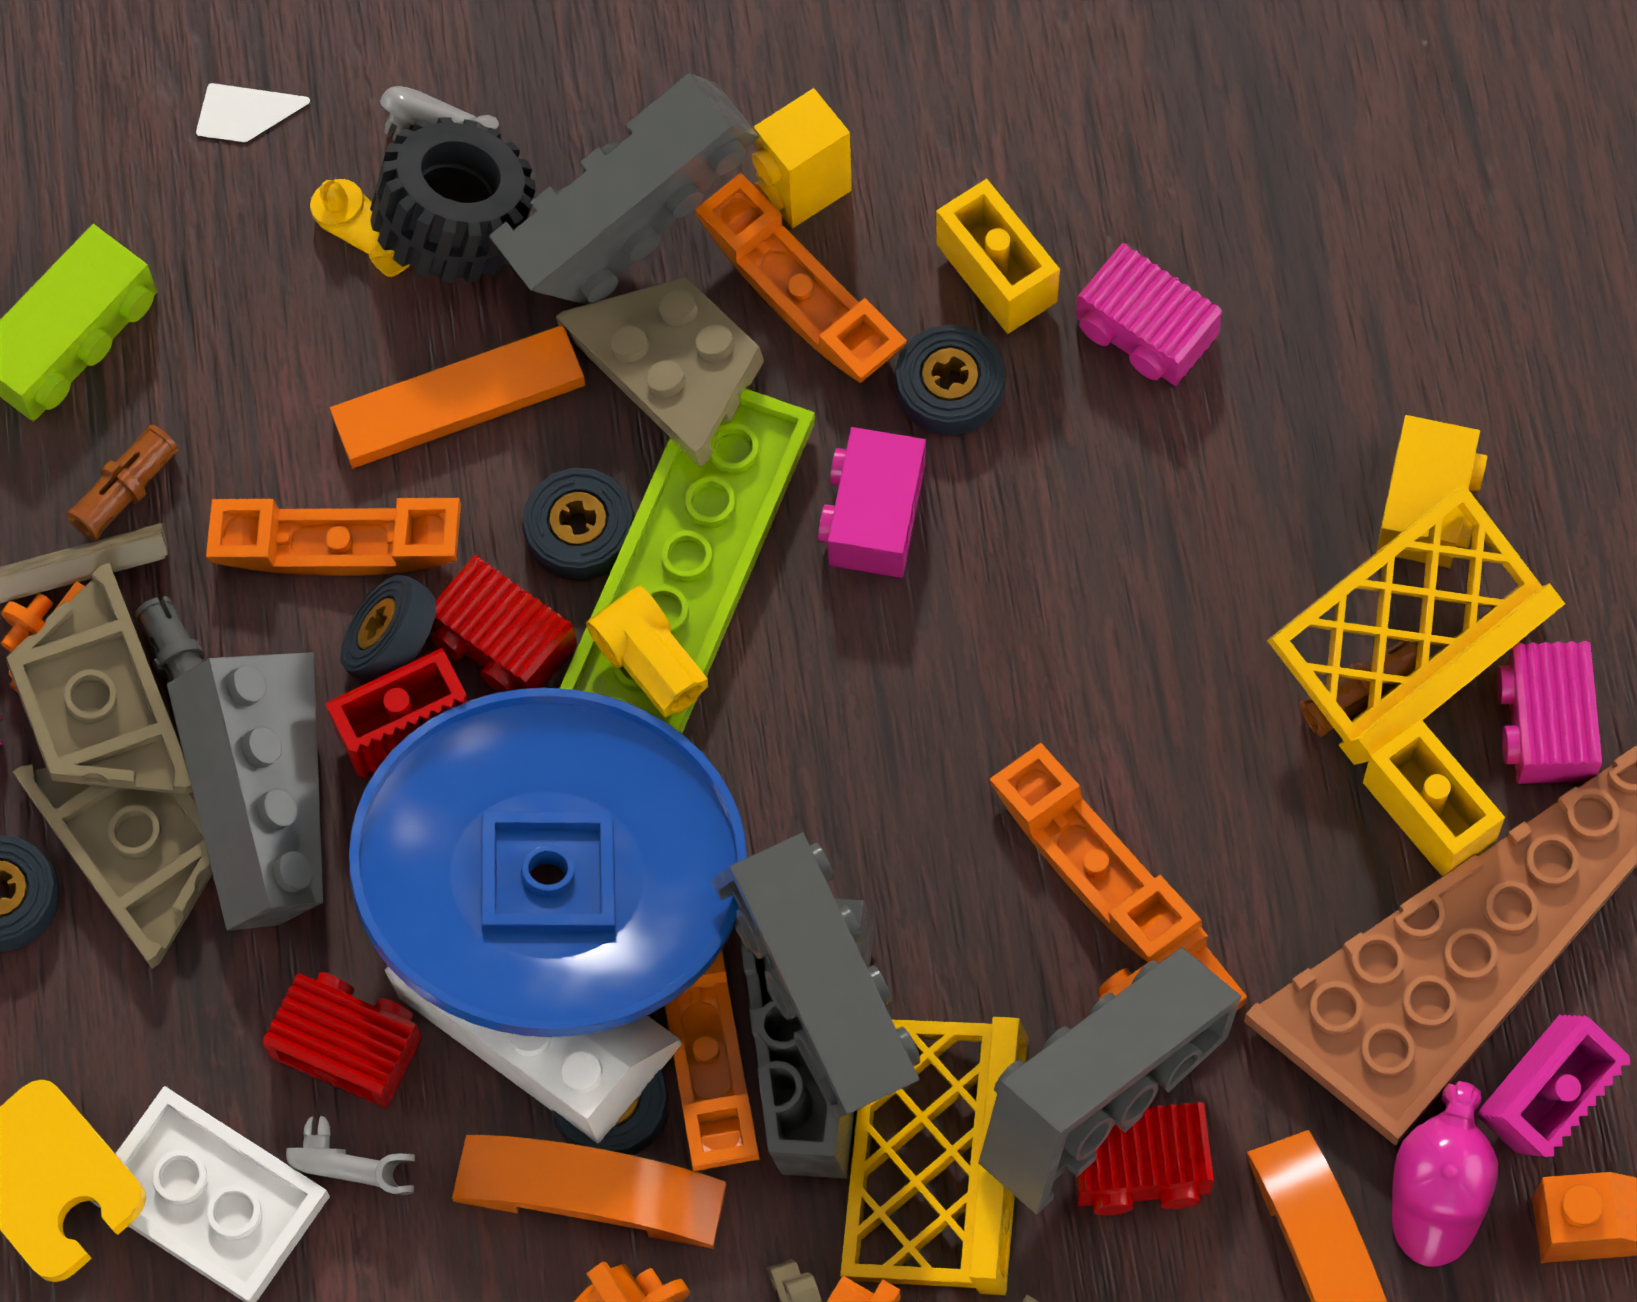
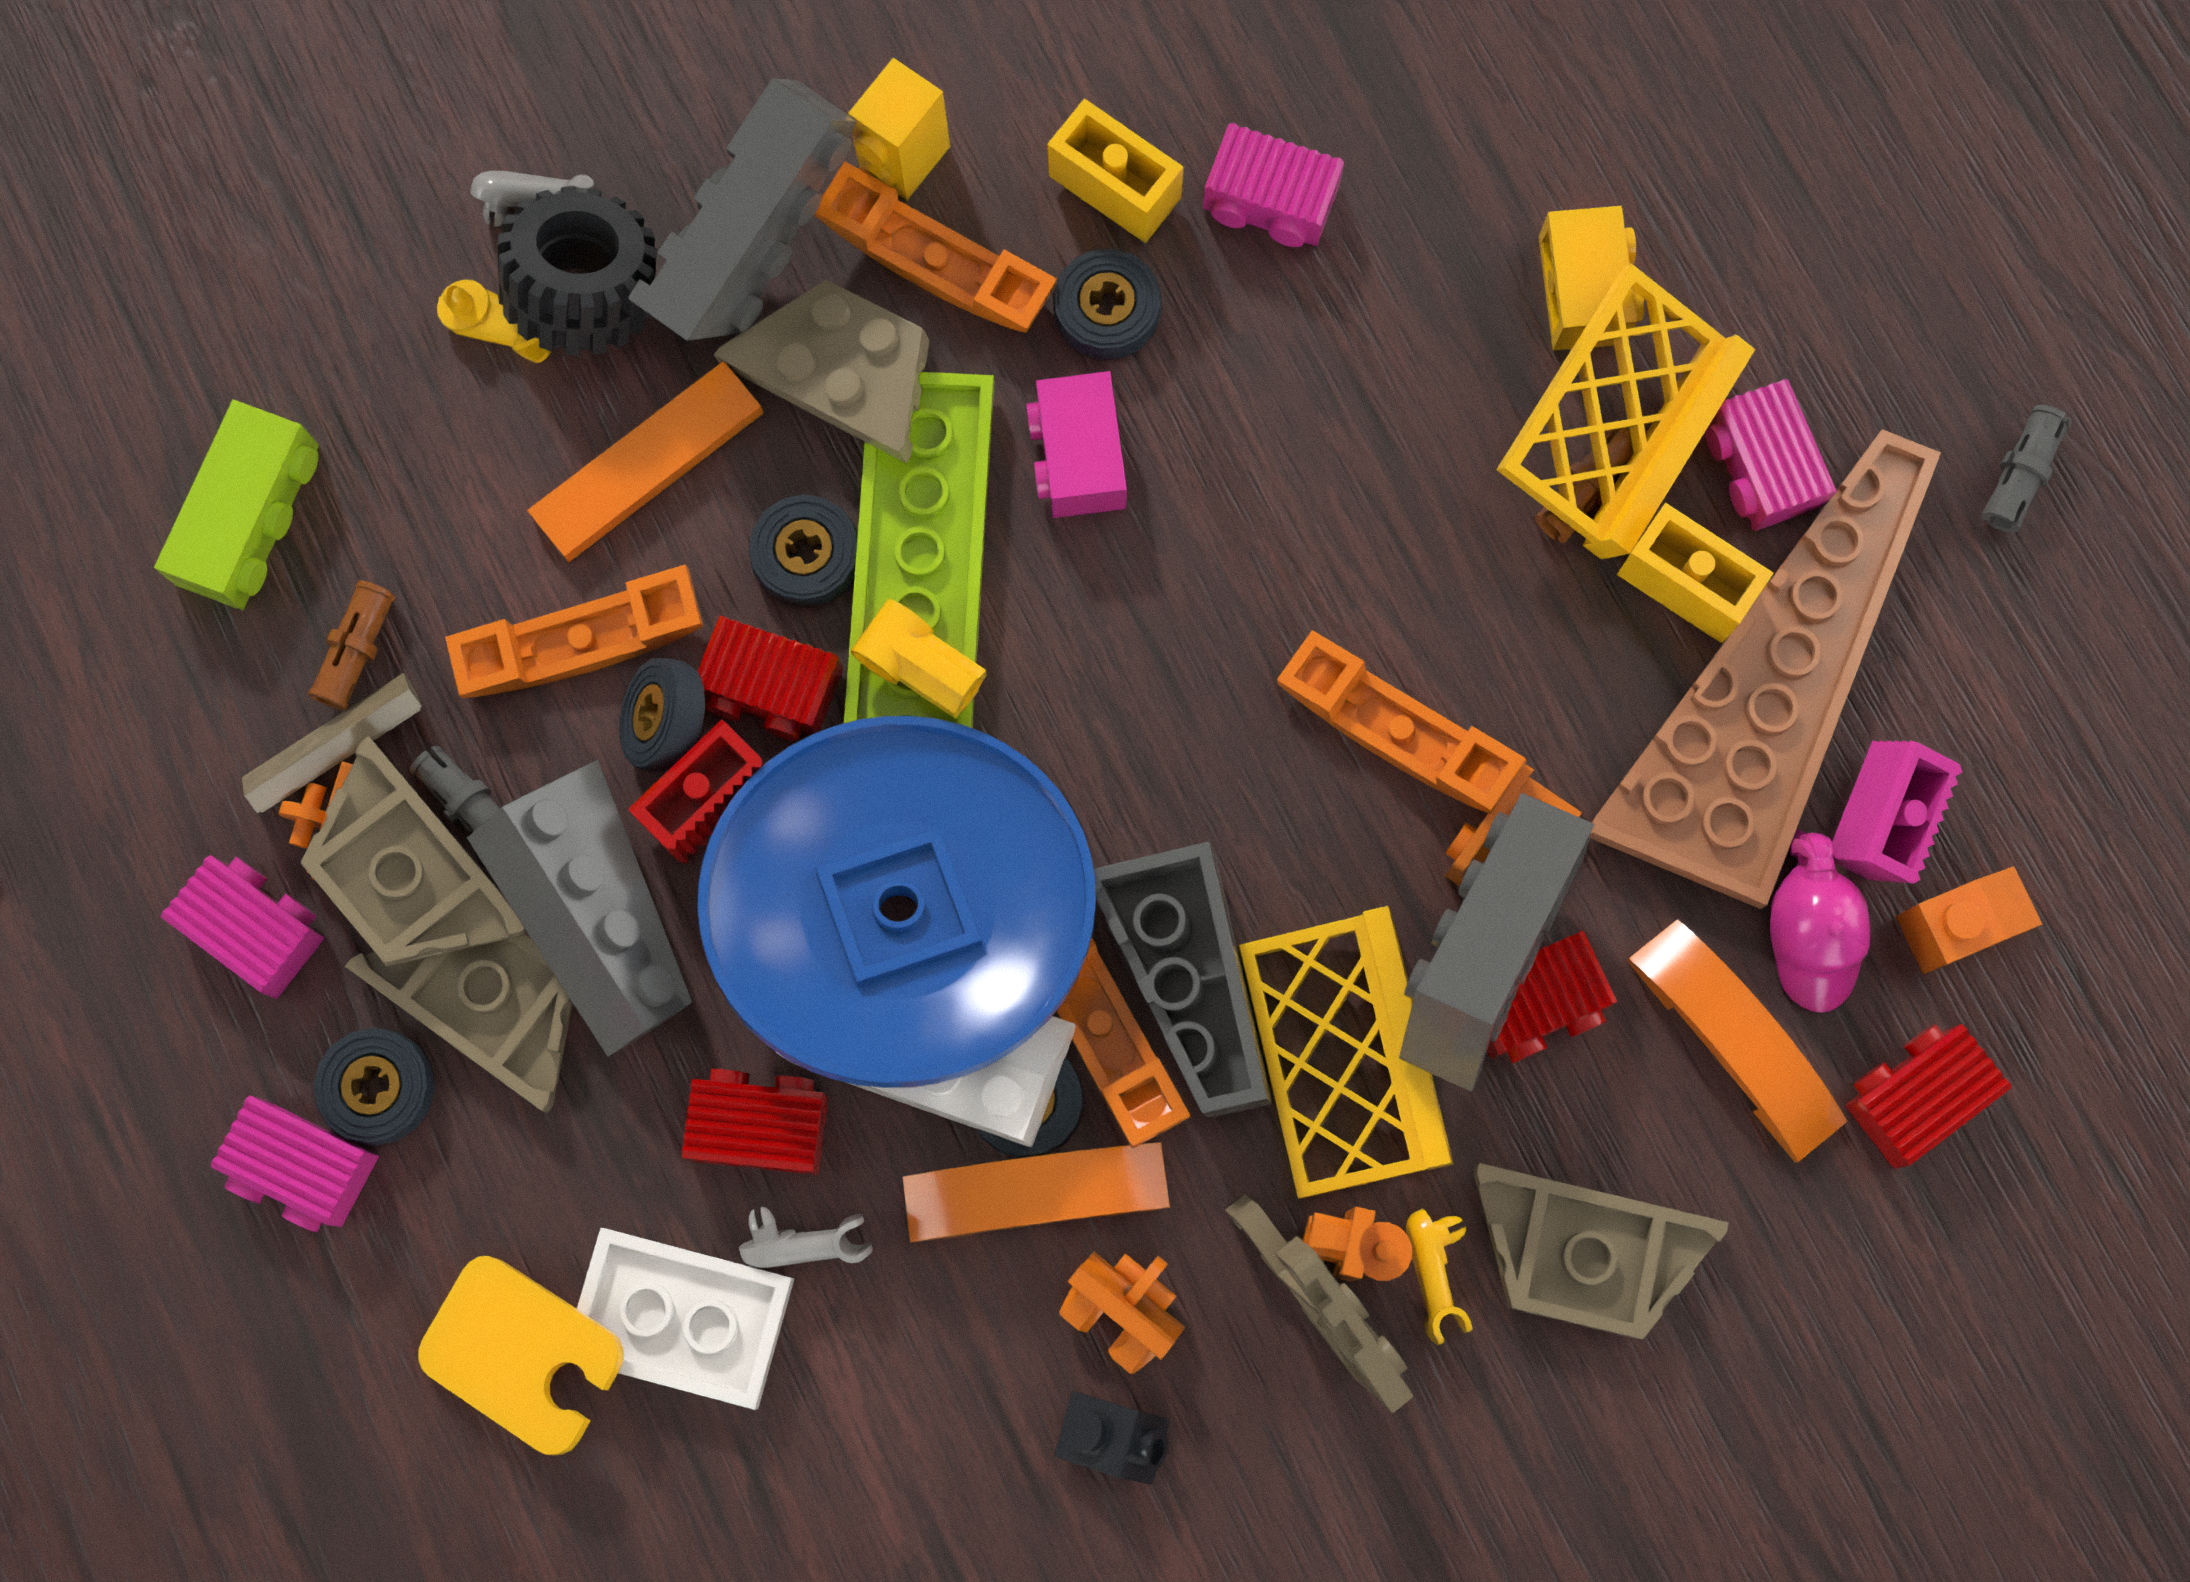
camera: 20 degrees left, 10 degrees up
(244, 112) = (340, 242): white sticker -> none
(820, 973) = (1200, 933): dark grey wedge -> none

